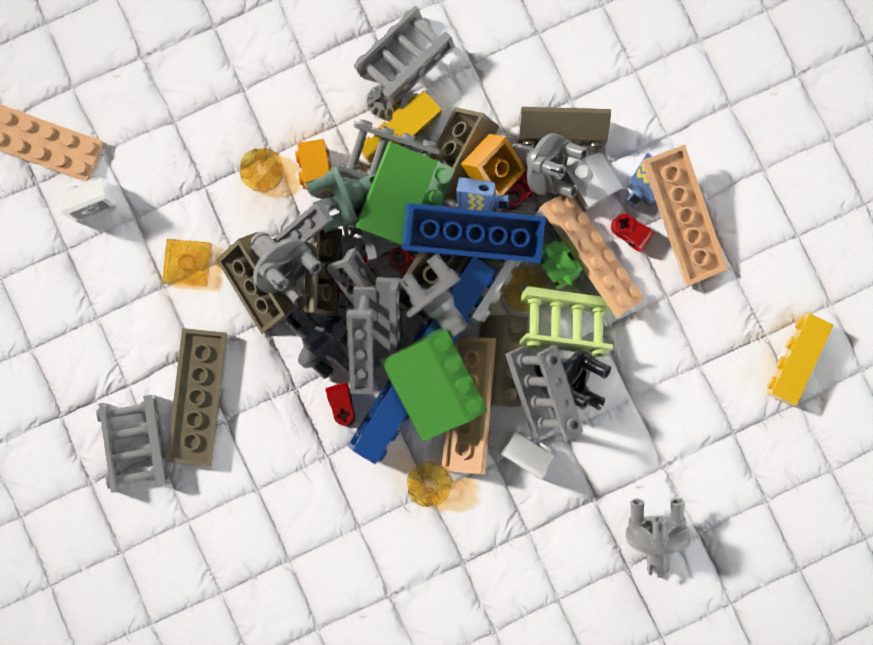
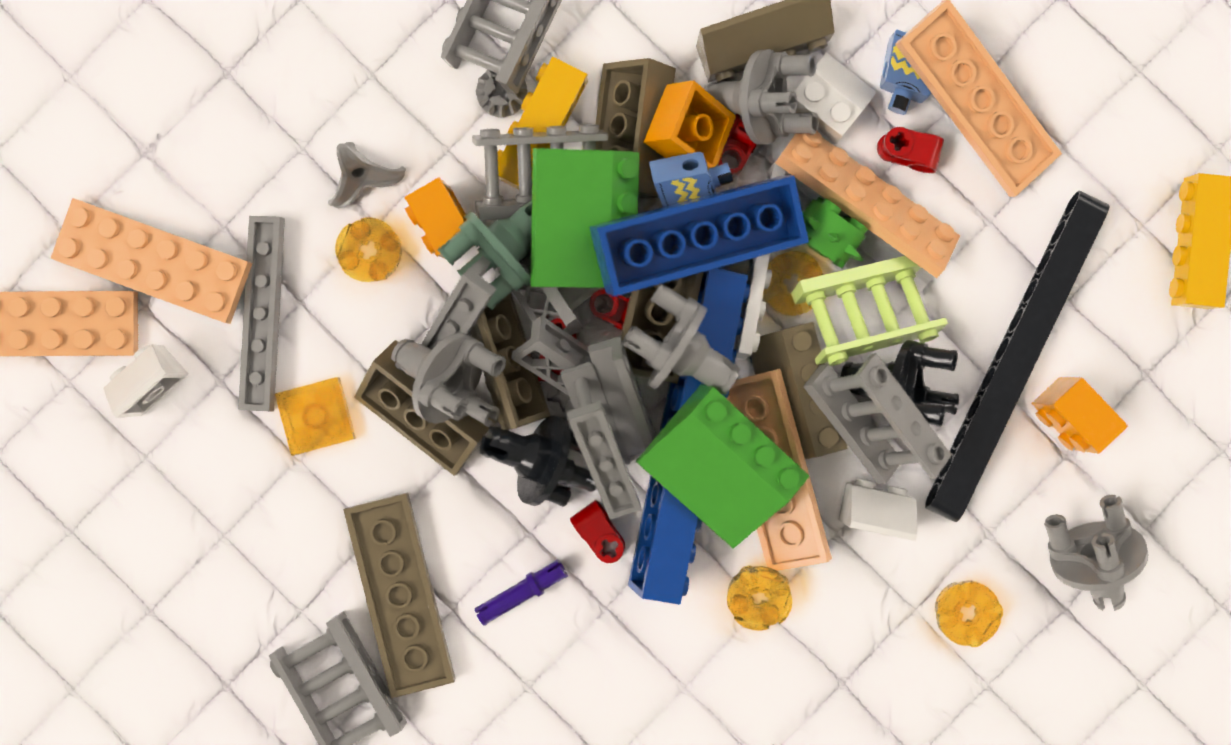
camera: 20 degrees left, 5 degrees up
(121, 126) = (151, 261): none -> light nougat plate
(177, 184) = (261, 314): none -> light grey plate
(270, 425) = (532, 585): none -> dark purple pin
(274, 119) = (359, 173): none -> light grey piece
(575, 546) = (972, 631): none -> clear yellow plate
(652, 389) = (1017, 355): none -> black beam
(677, 440) = (1078, 415): none -> light orange brick

